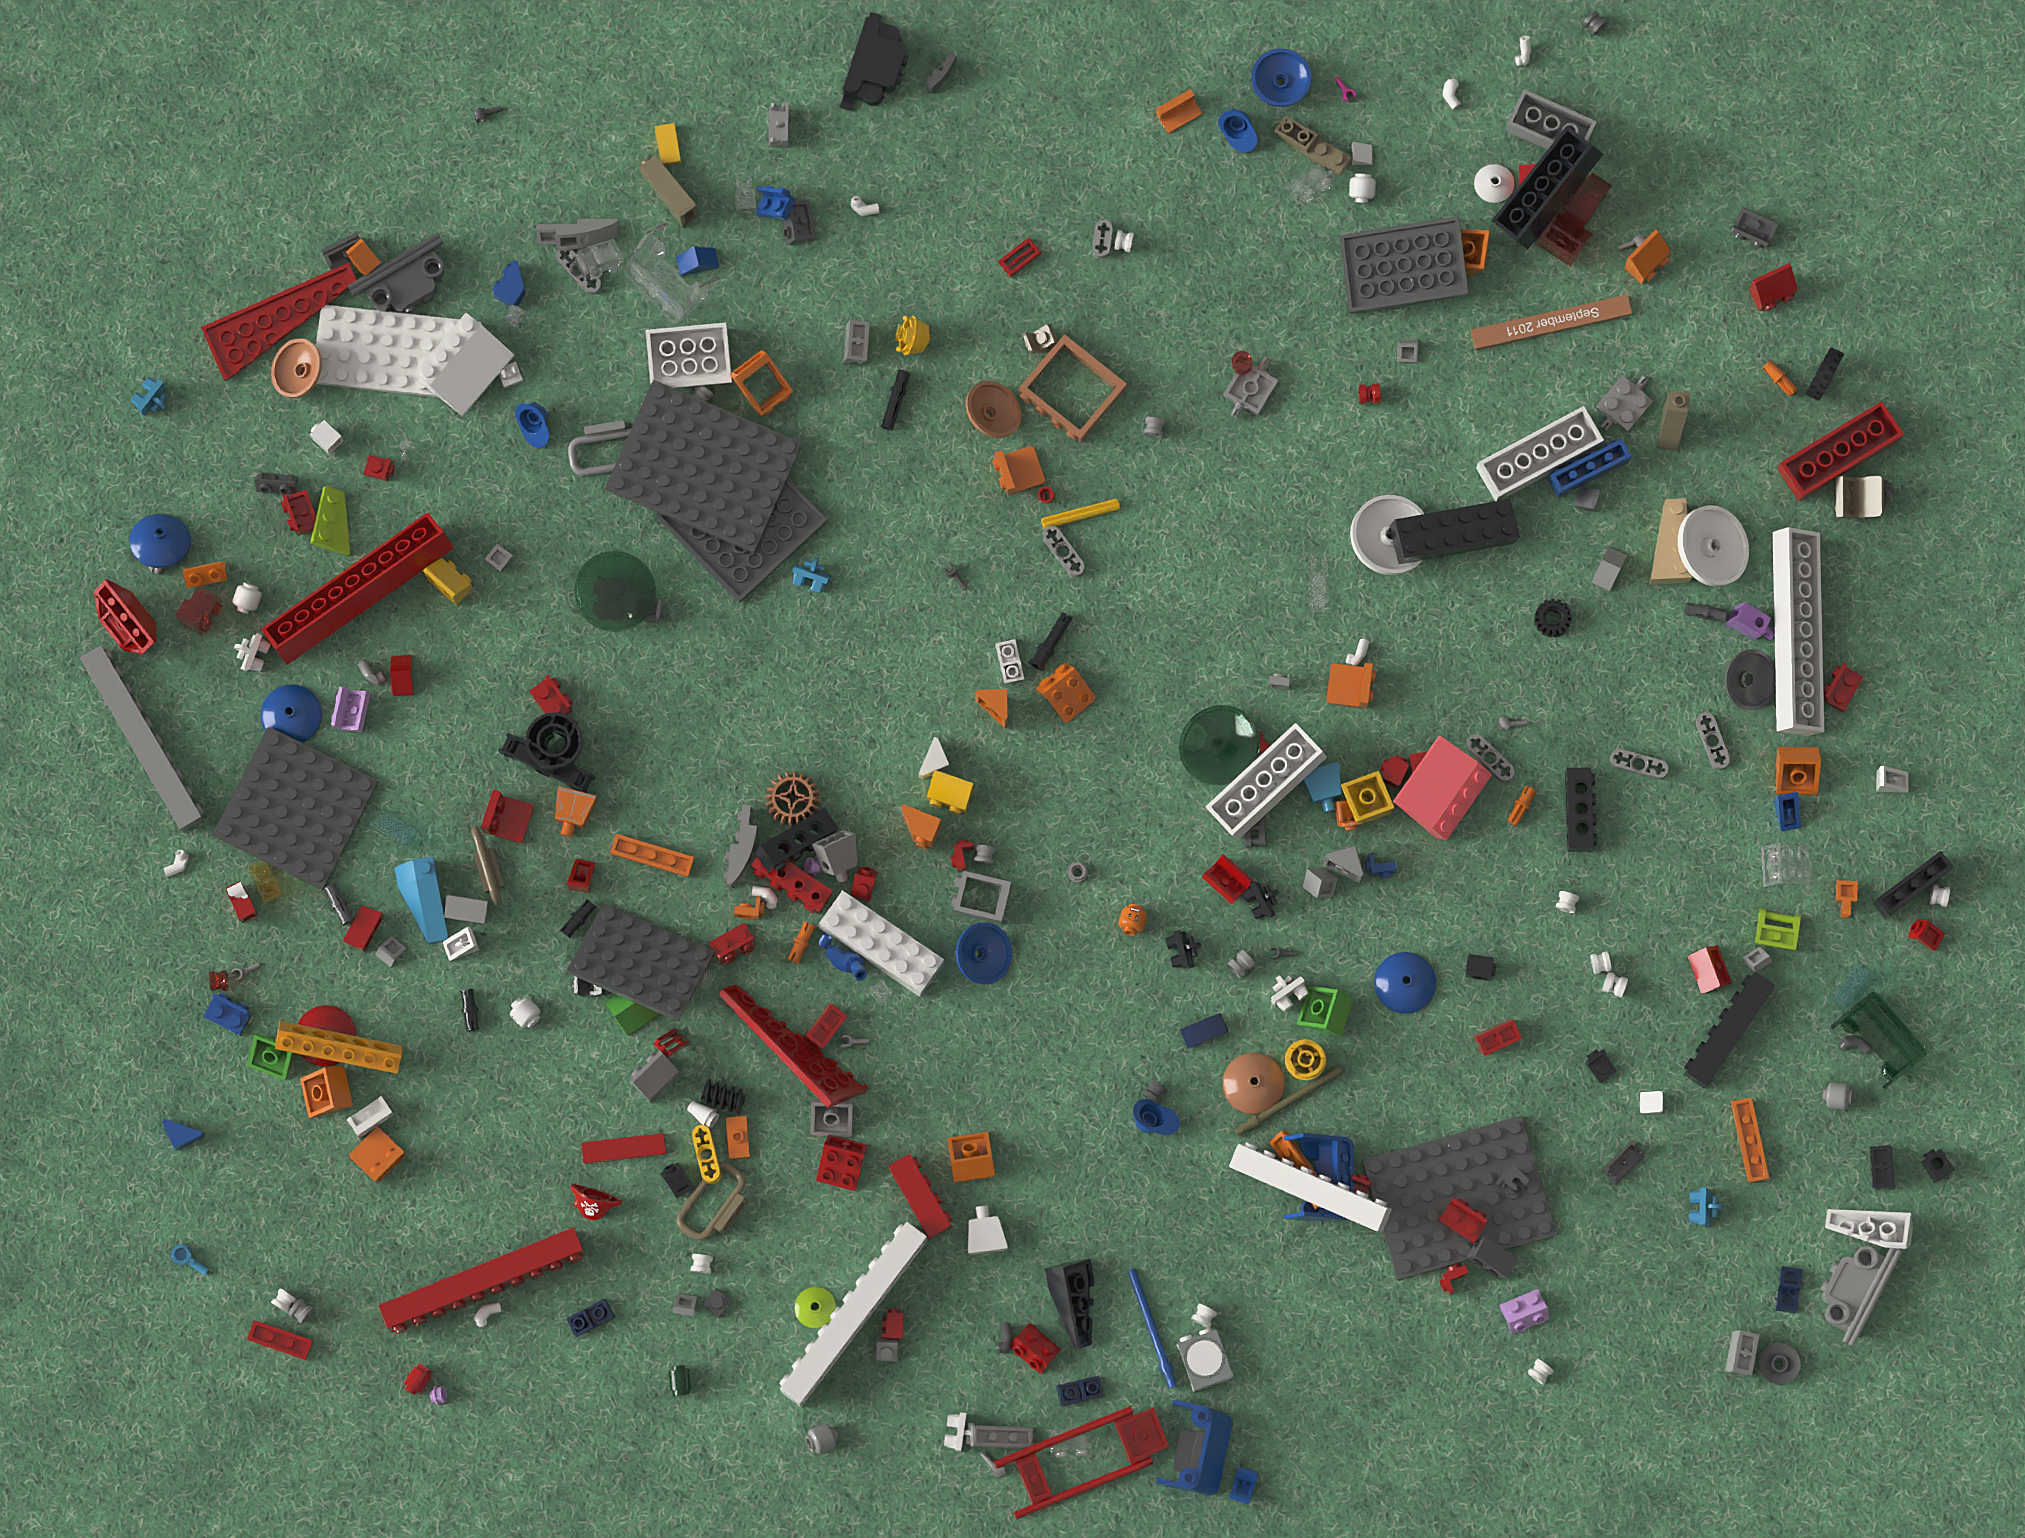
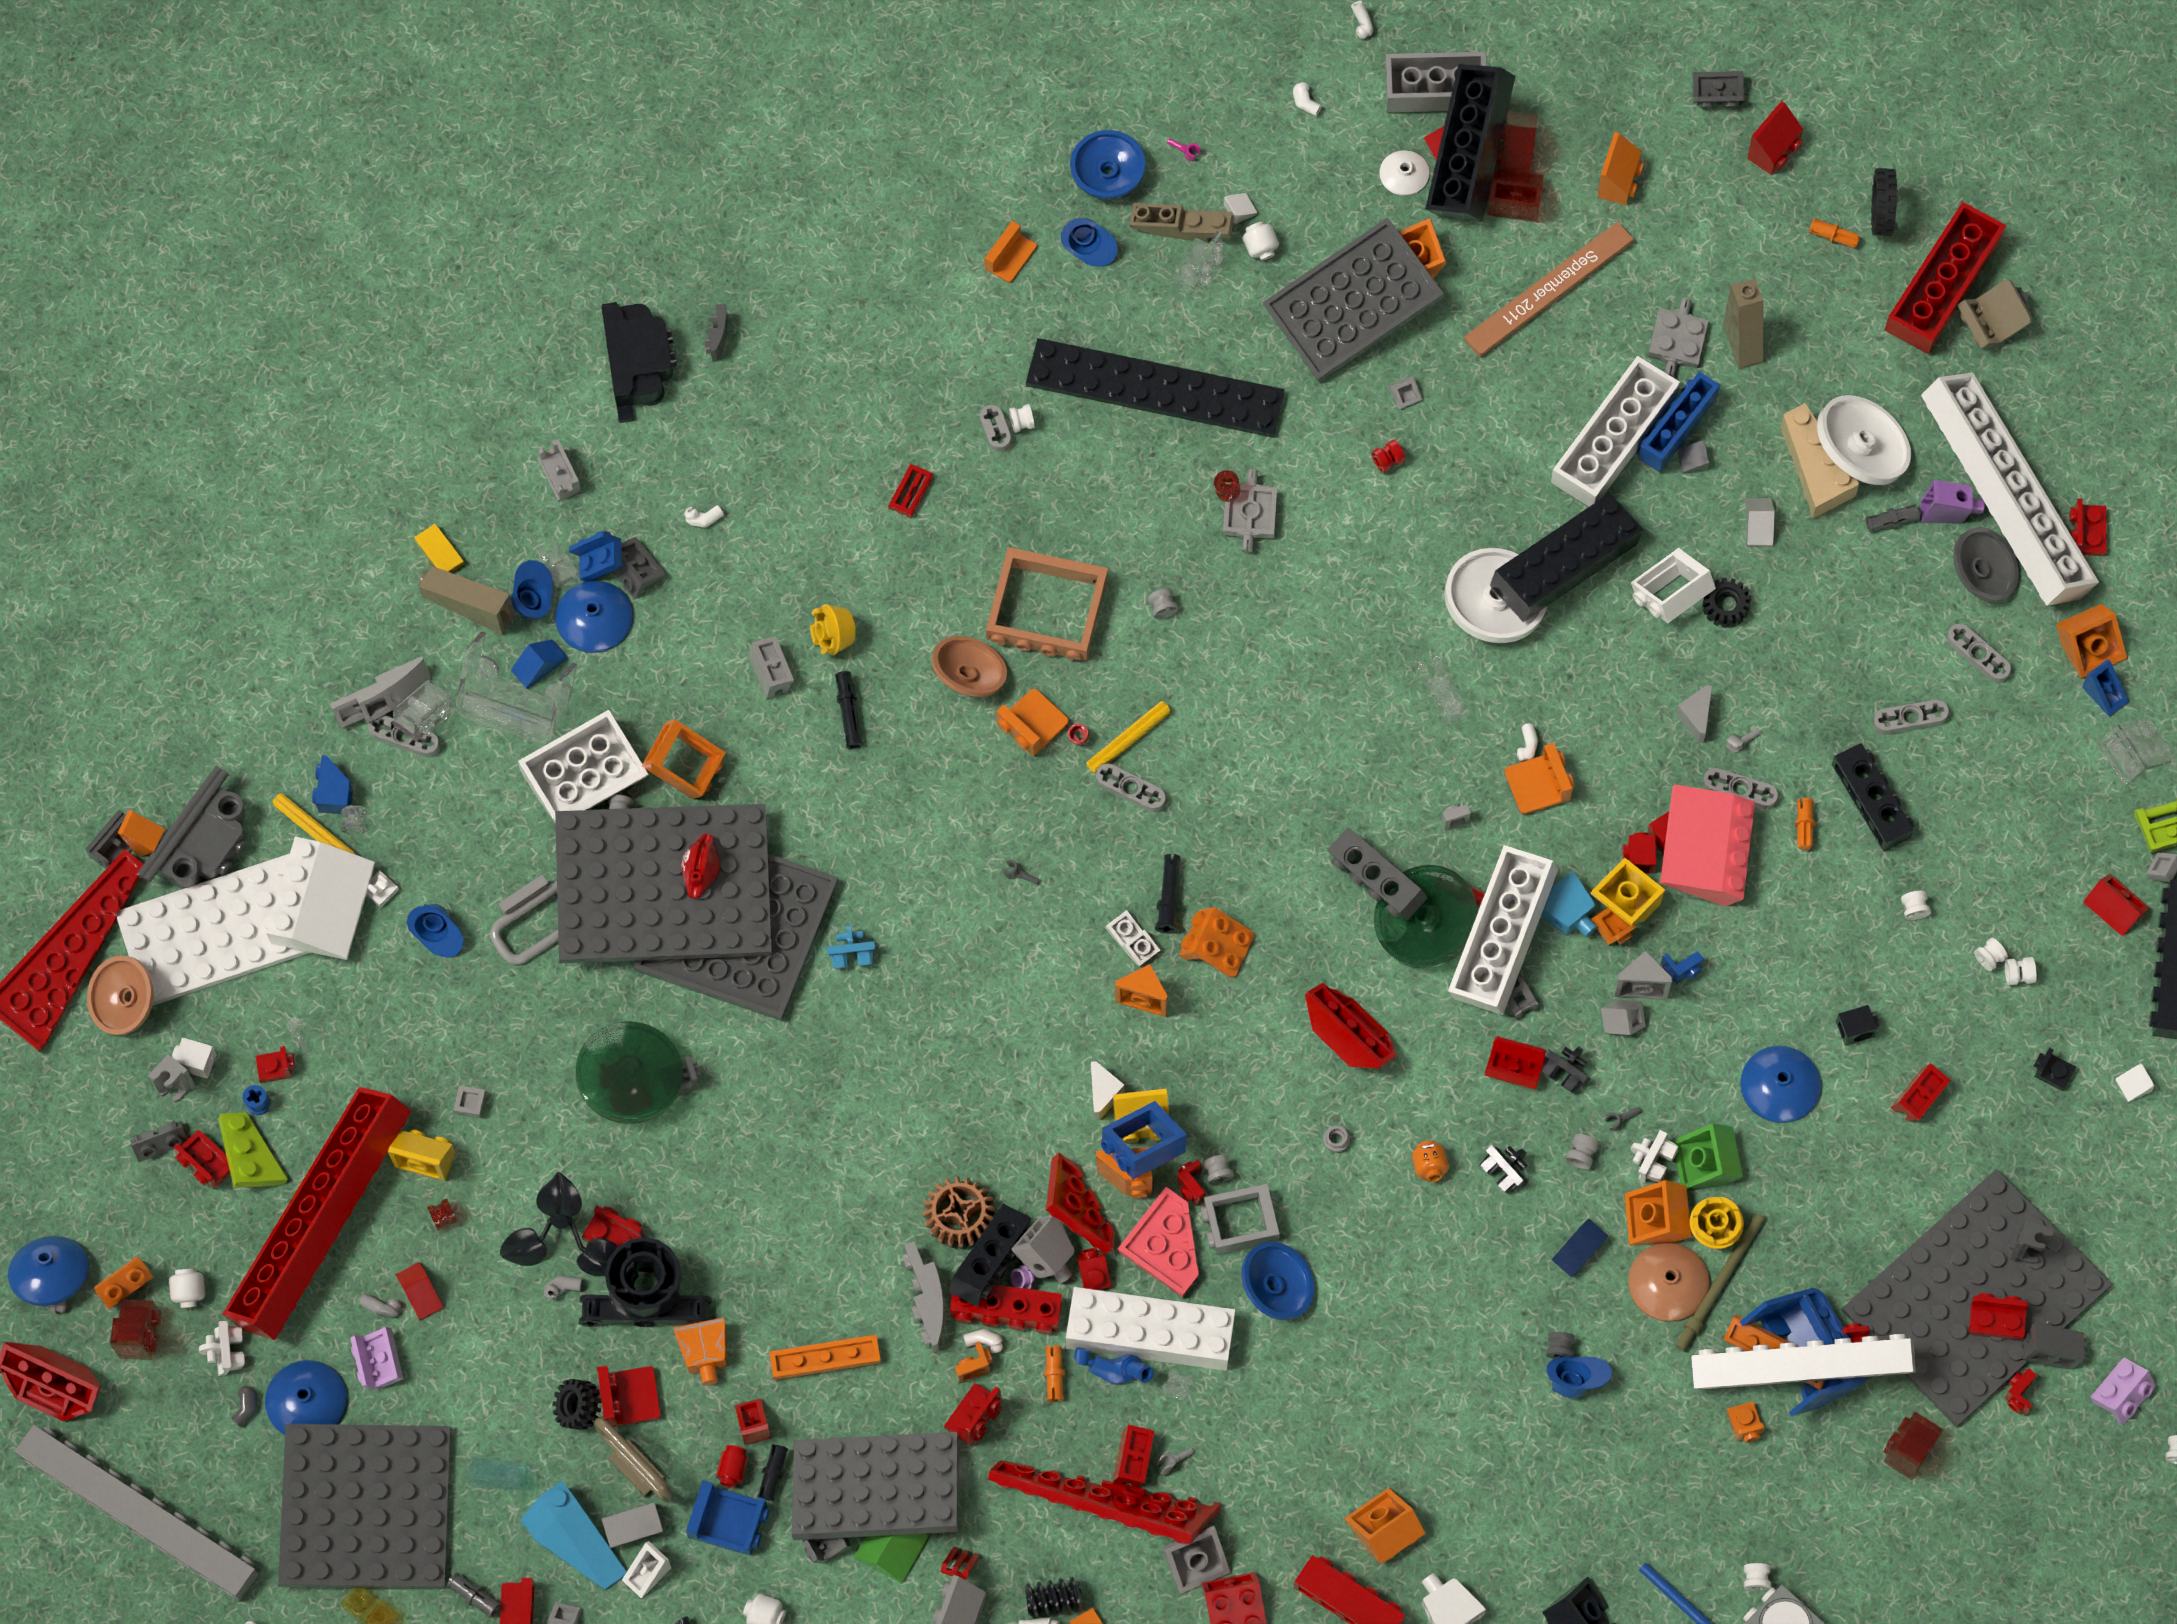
camera: 25 degrees left, 10 degrees down
(250, 700) = (248, 1405): none -> dark grey arm
(303, 441) = (171, 1074): none -> light grey hinge
(349, 485) = (252, 1092): none -> blue bush
(441, 629) = (442, 1214): none -> clear red wheel
(468, 807) = (566, 1404): none -> black tyre
(480, 113) = (201, 614): dark grey hand -> none
(484, 306) = (307, 823): none -> yellow axle
(499, 717) = (560, 1284): none -> light grey arm
(522, 666) = (560, 1202): none -> black plant
(532, 935) = (727, 1519): none -> blue panel
(552, 900) = (732, 1466): none -> red brick
(717, 206) = (532, 590): none -> blue piece
(734, 467) = (700, 865): none -> red hat
(753, 257) = (593, 630): none -> blue dish
(873, 833) = (1075, 1205): none -> red plate
(922, 888) = (1164, 1243): none -> coral plate
(944, 828) = (1152, 1115): none -> blue window
(1040, 339) = (983, 566): dark tan bracket -> none
(1125, 799) = (1348, 1028): none -> red wedge
(1214, 724) = (1351, 846): none -> dark grey brick
(1231, 262) = (1155, 387): none -> black plate
(1253, 1206) = (1745, 1422): none -> orange bracket
(1270, 1033) = (1658, 1214): none -> orange slope
(1357, 1278) = (1912, 1445): none -> clear red brick
(1487, 687) = (1694, 713): none -> light grey slope
(1518, 575) = (1663, 573): none -> white window
(1623, 1162) = (2141, 1165): dark grey hinge -> none
(1638, 240) = (1597, 160): light grey hand -> none

